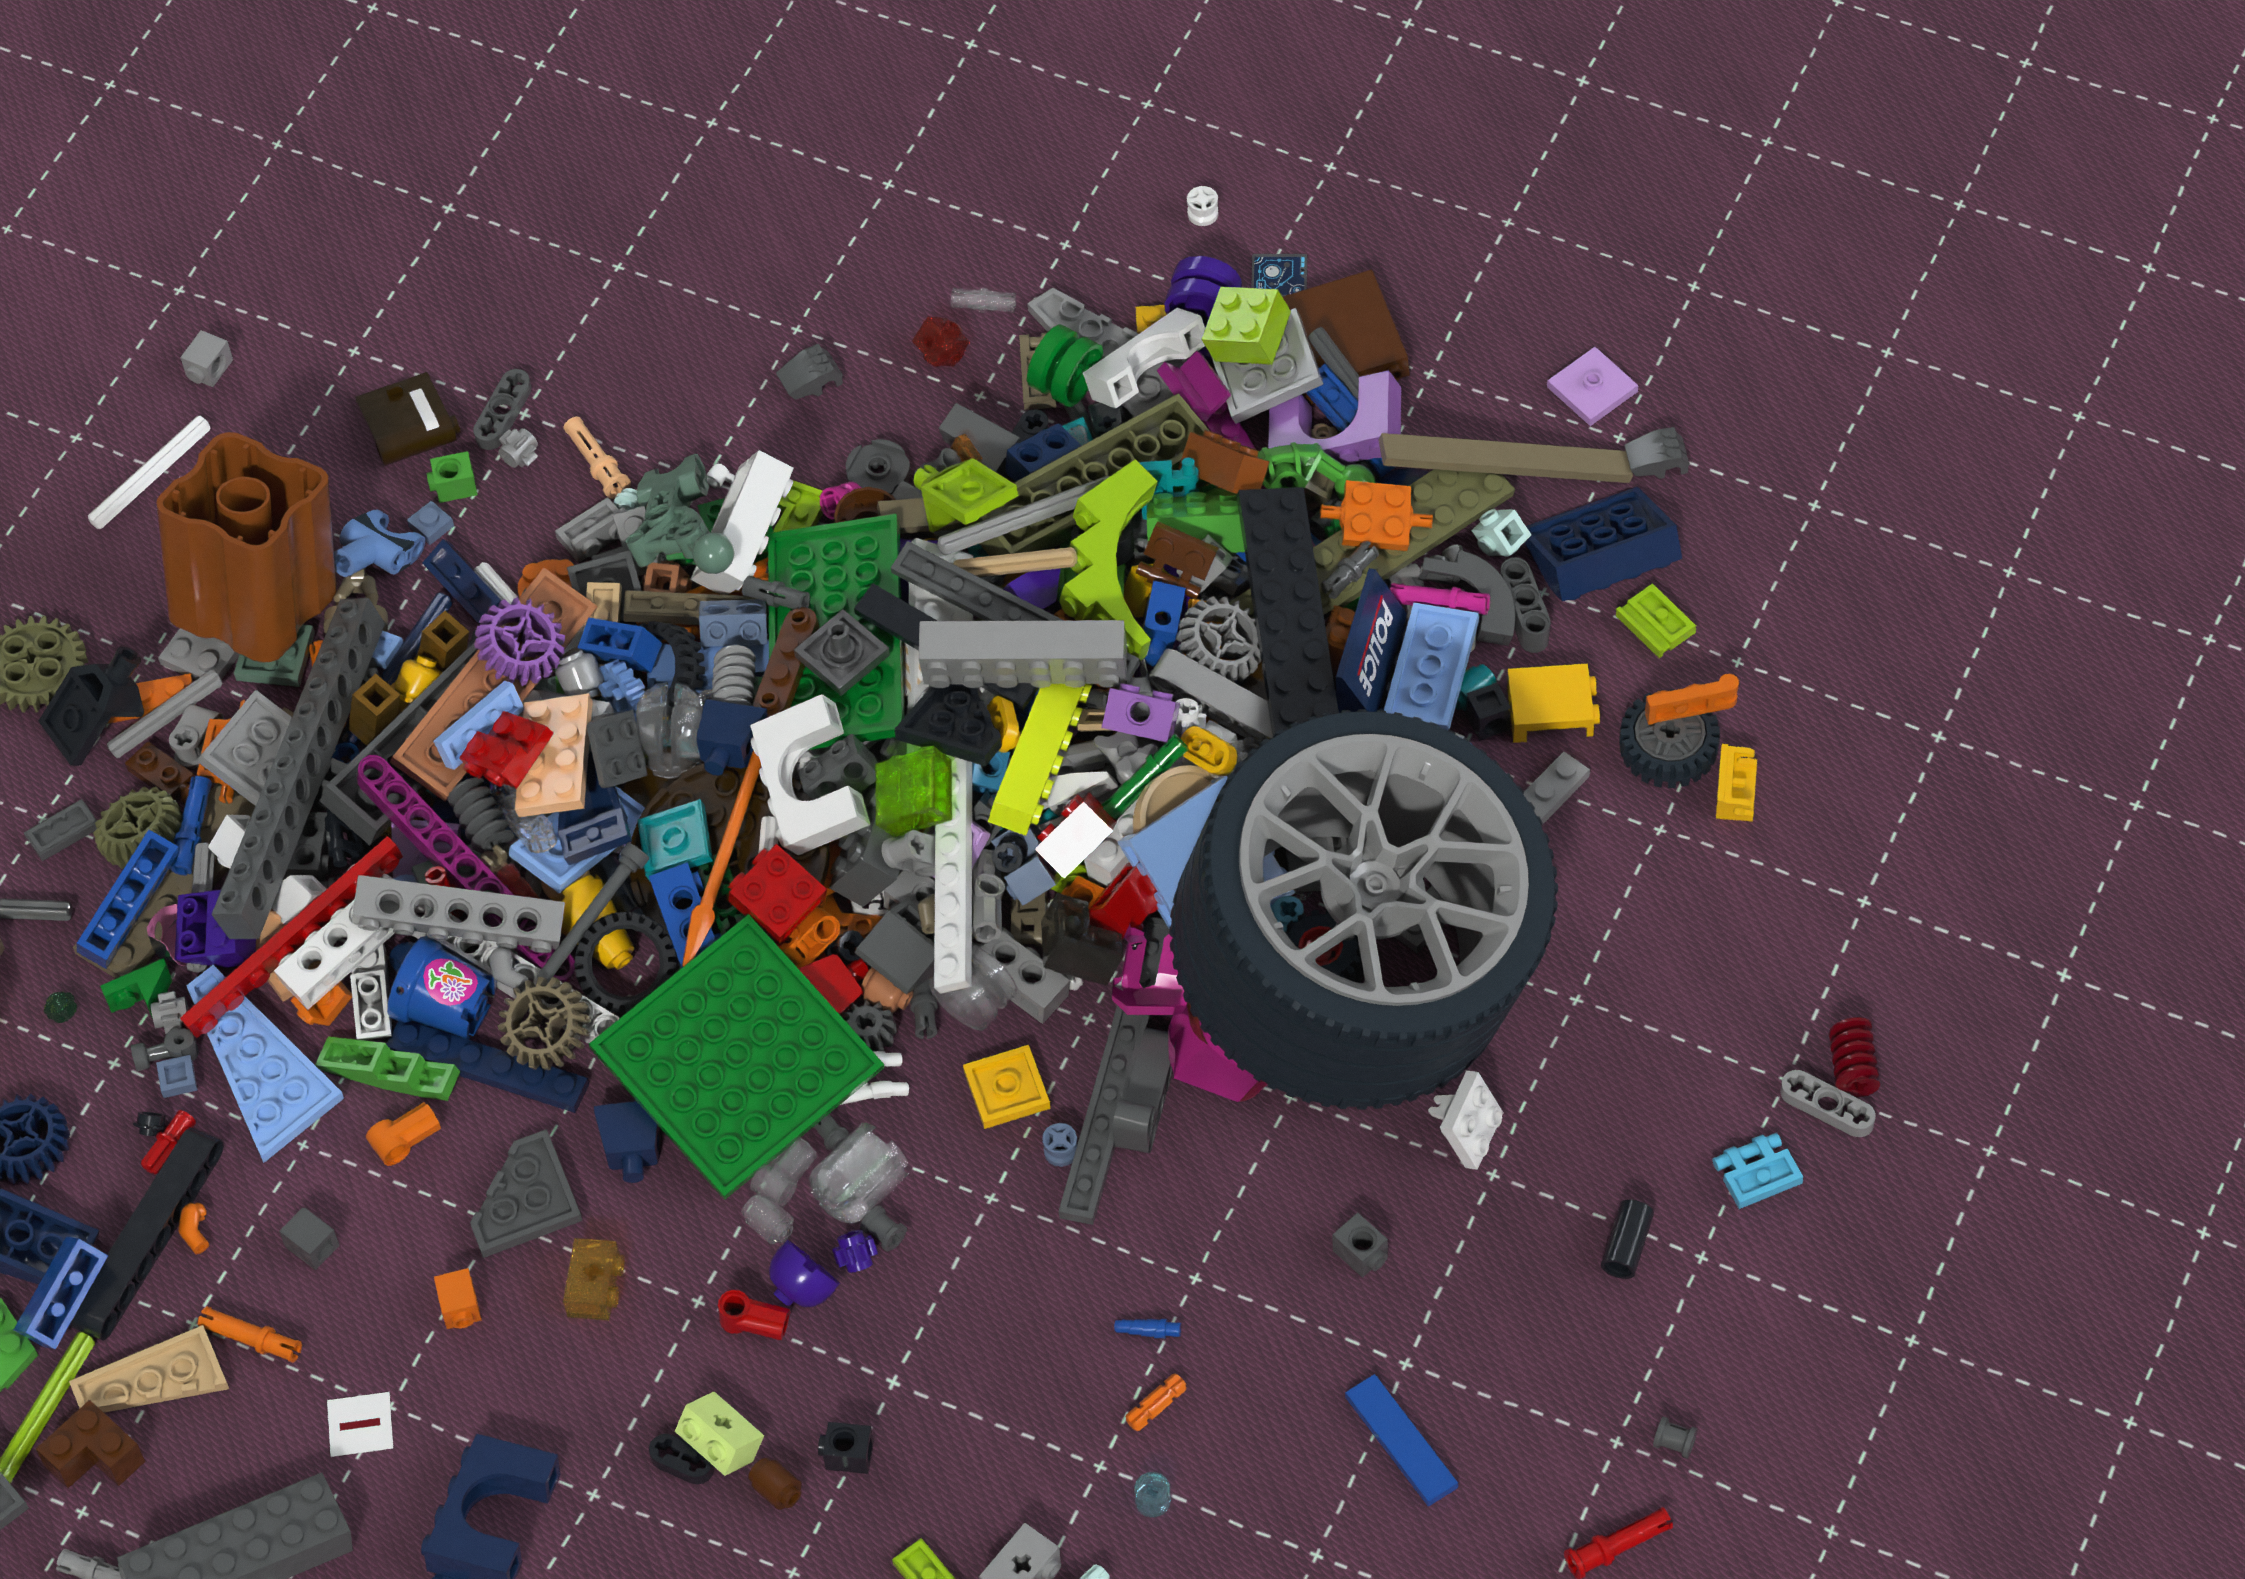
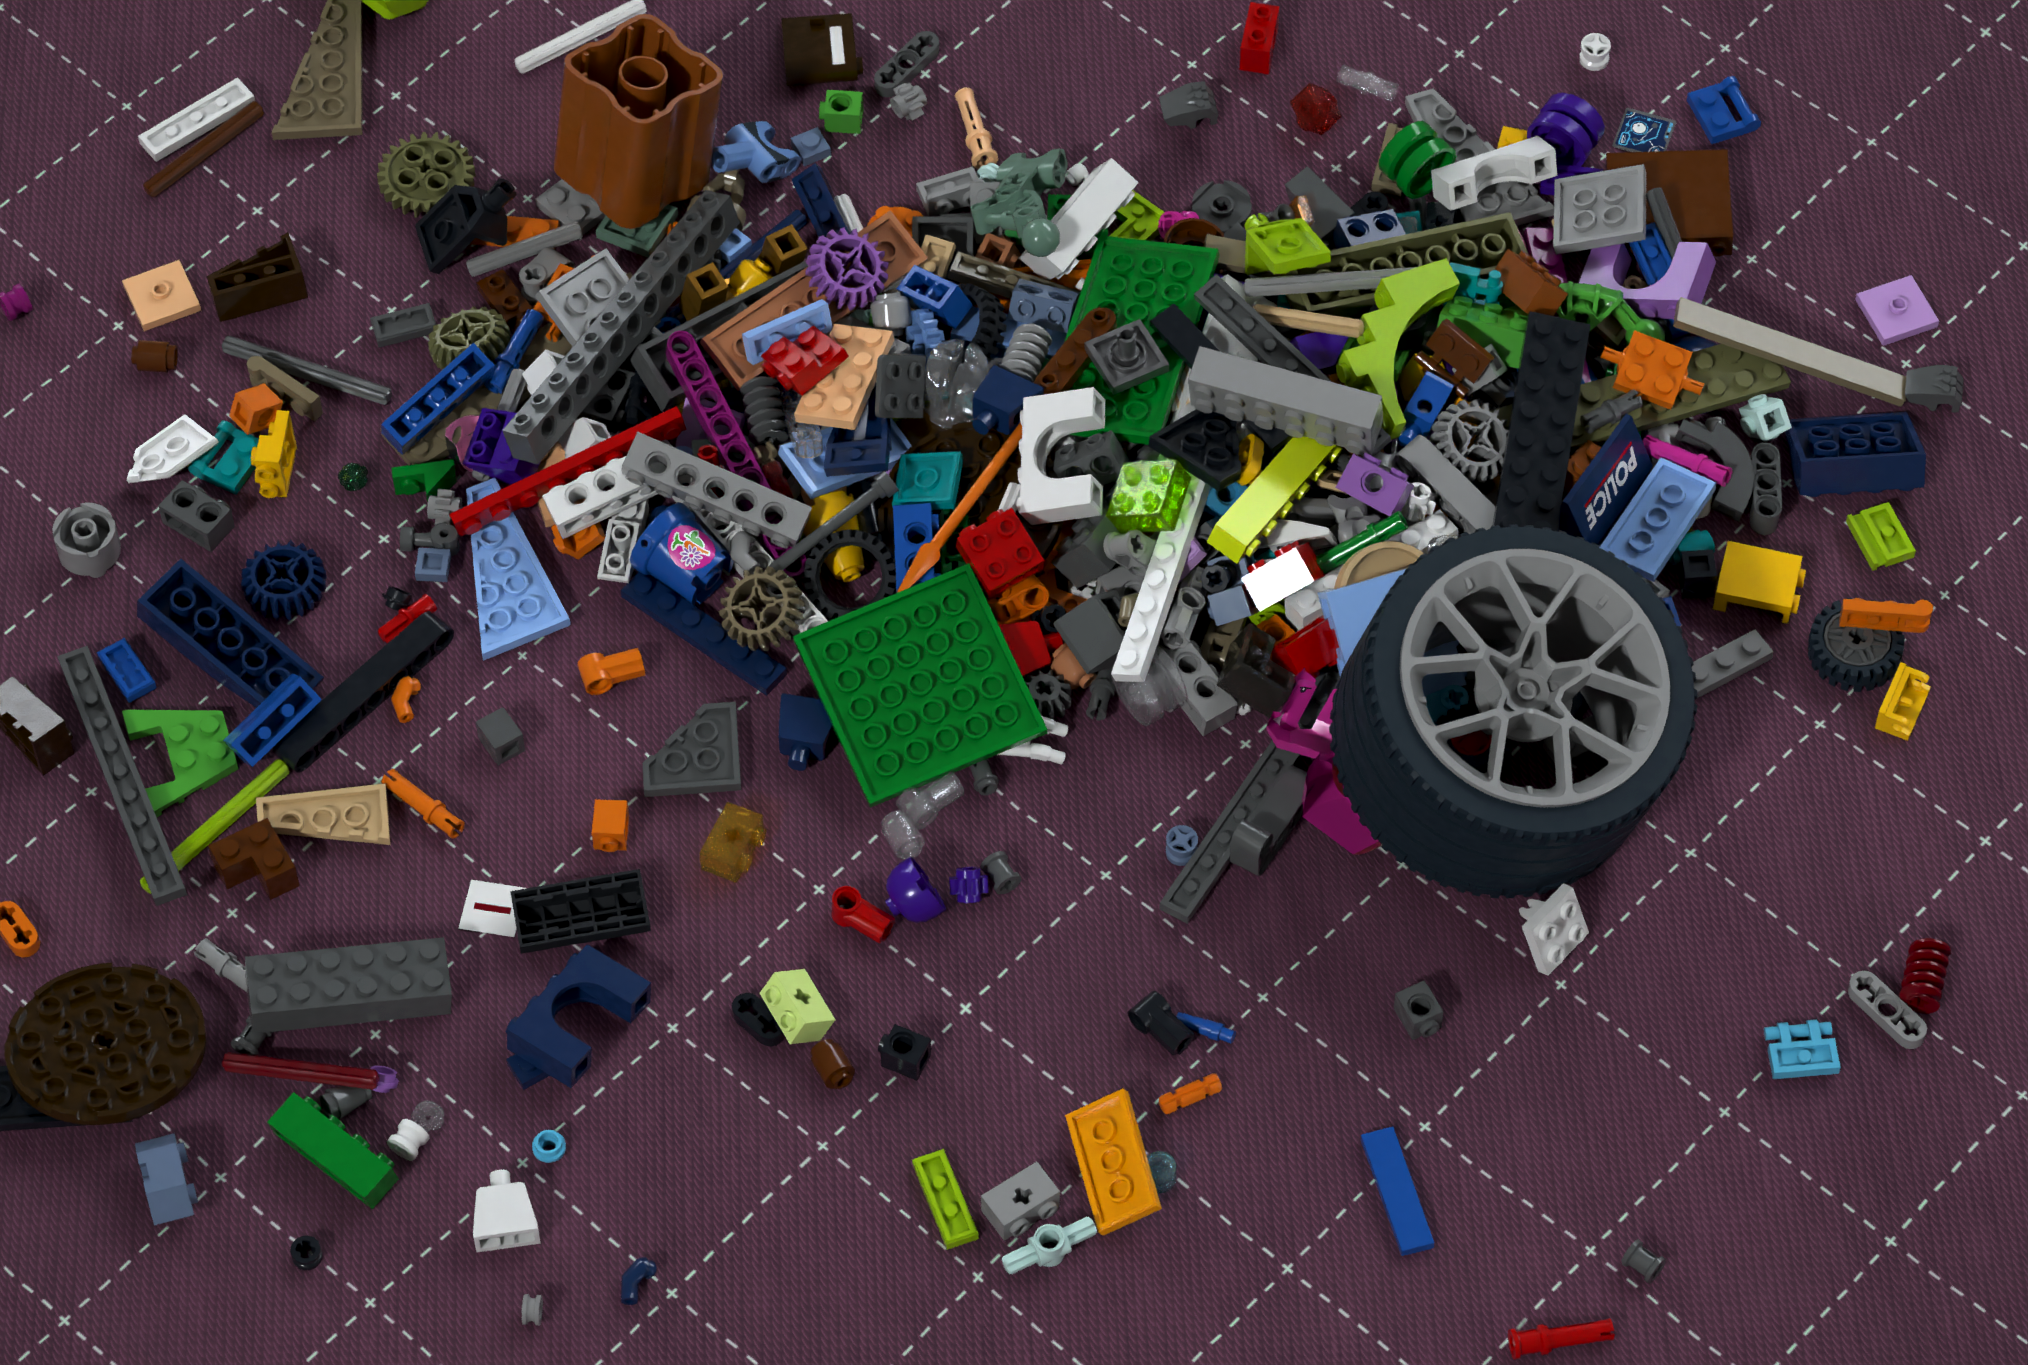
camera: 15 degrees right, 0 degrees up
(387, 1069) = (615, 610): bright green slope -> none
(456, 1400) = (580, 911): none -> black piece
(758, 589) = (1074, 281): dark grey pin -> none
(857, 1175) = (992, 819): clear cylinder -> none
(858, 284) = (1259, 38): none -> red brick
(1006, 1086) = (1151, 781): yellow plate -> none
(1094, 1333) = (1155, 1017): none -> black piece
(1102, 1498) = (1113, 1162): none -> light orange tile
(1196, 385) = (1530, 210): magenta panel -> none
(1210, 752) = (1423, 532): yellow plate -> none
(1246, 325) = (1592, 168): lime brick -> none
(1344, 237) = (1714, 114): none -> blue plate
(1627, 1239) = (1661, 1075): black pin -> none

